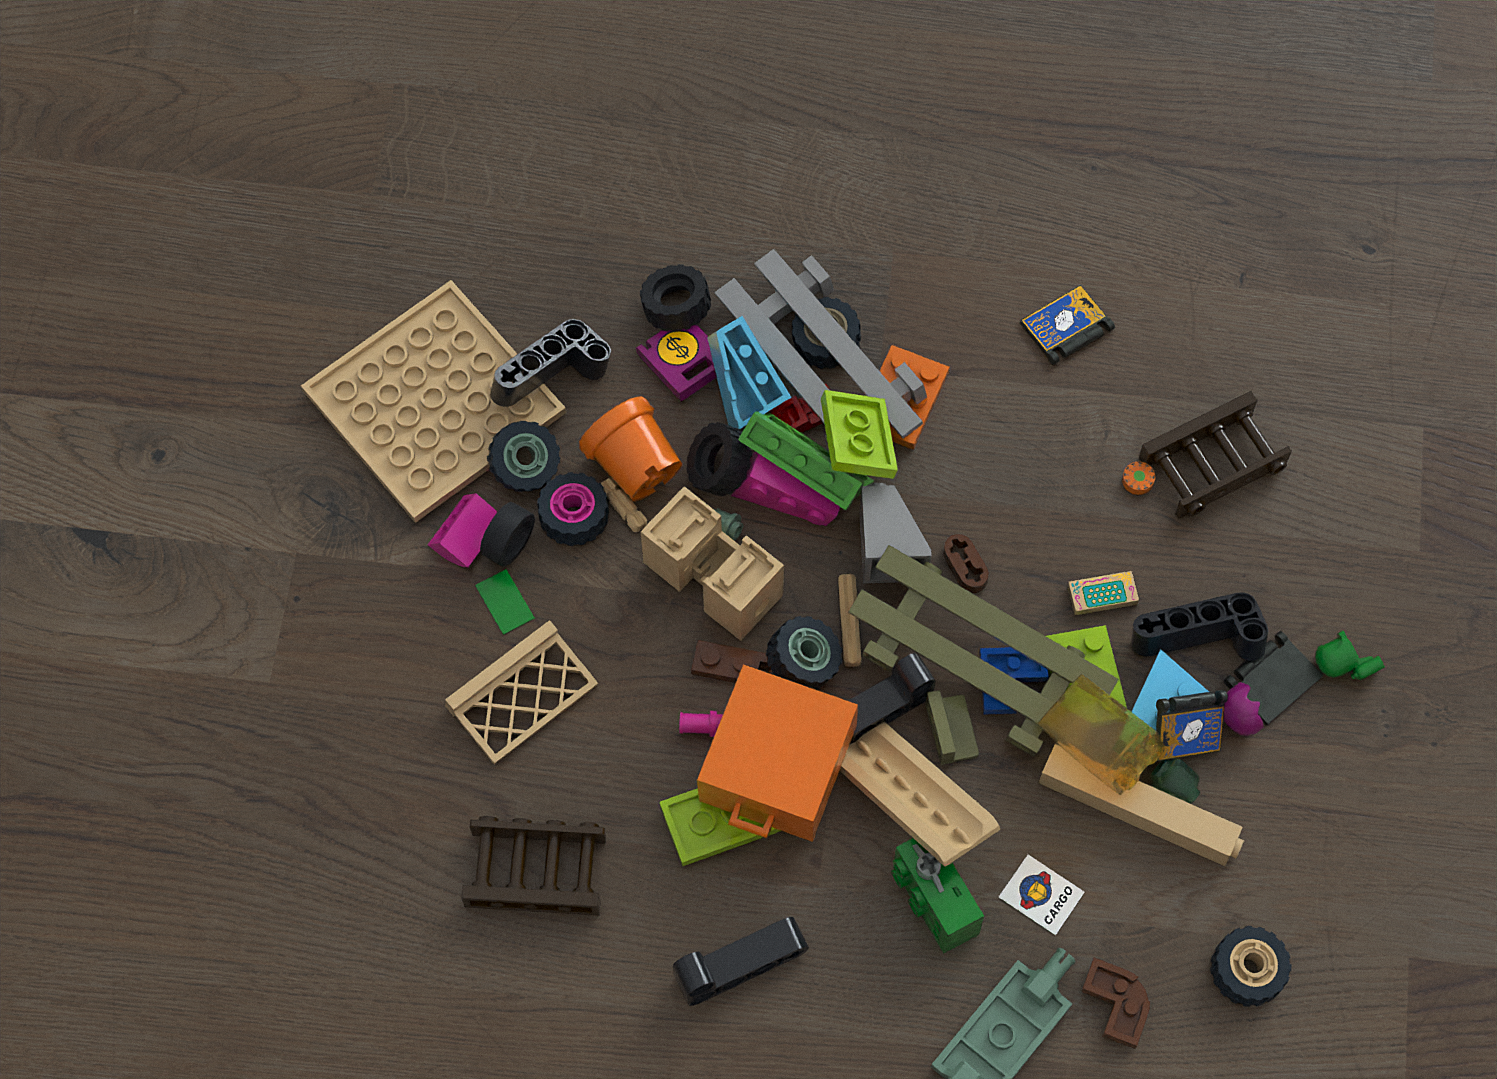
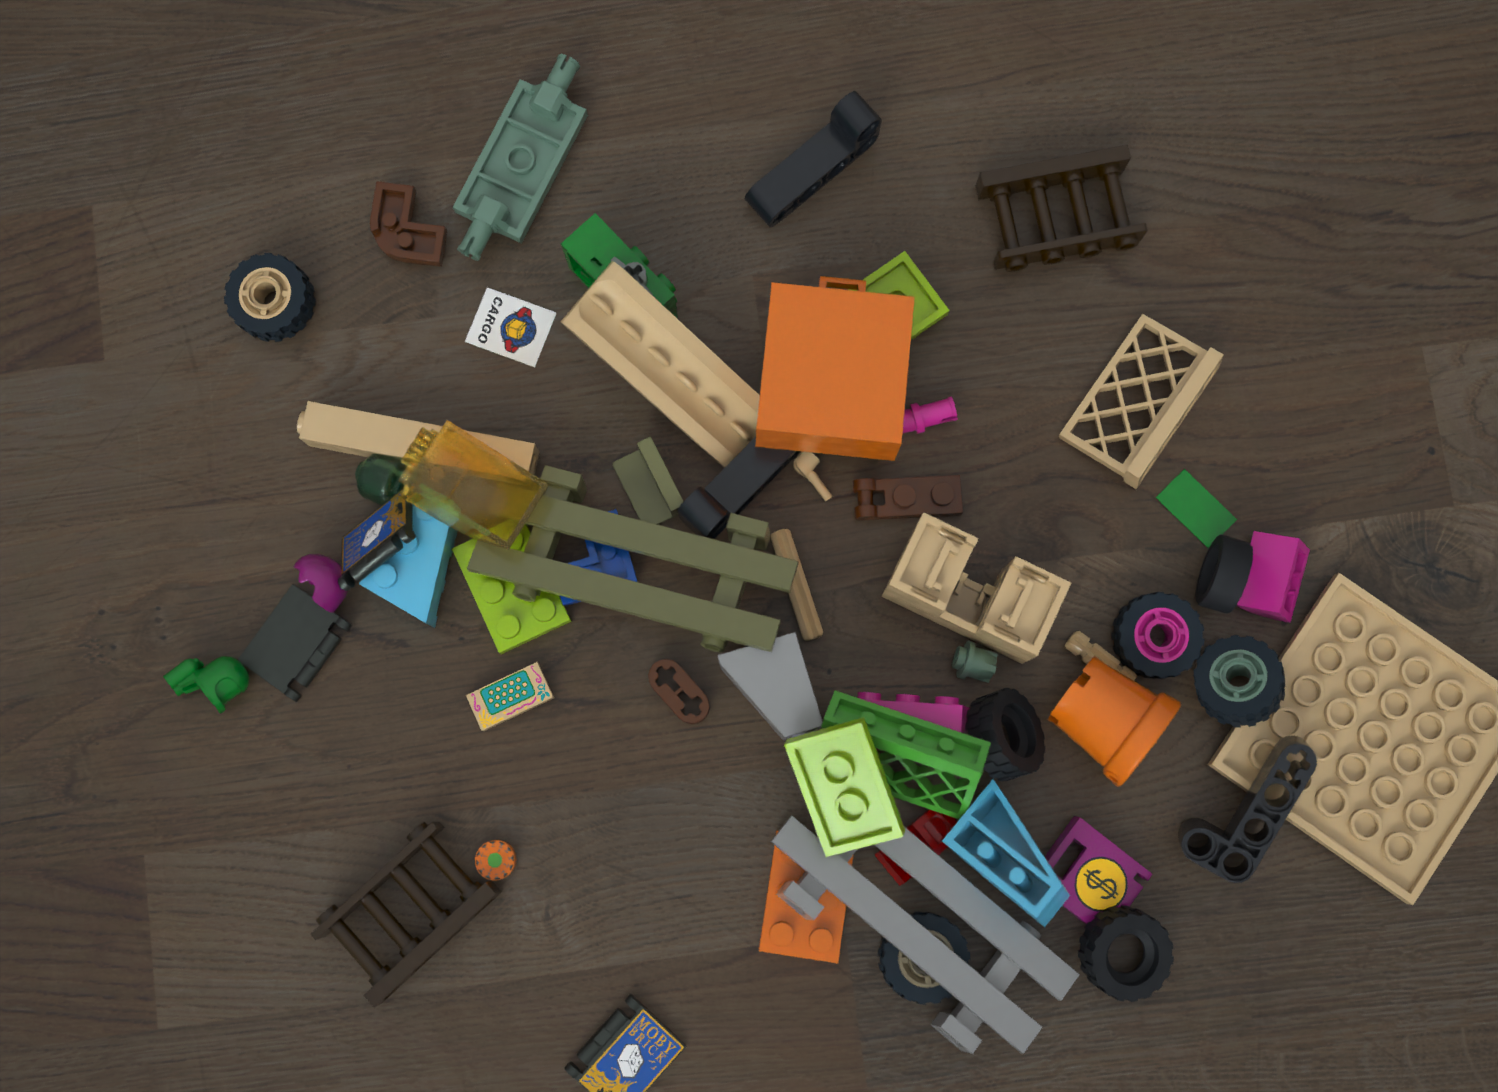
camera: 165 degrees right, 15 degrees up
(815, 641) = (814, 513): black wheel -> none
(1201, 623) = (390, 671): black beam -> none

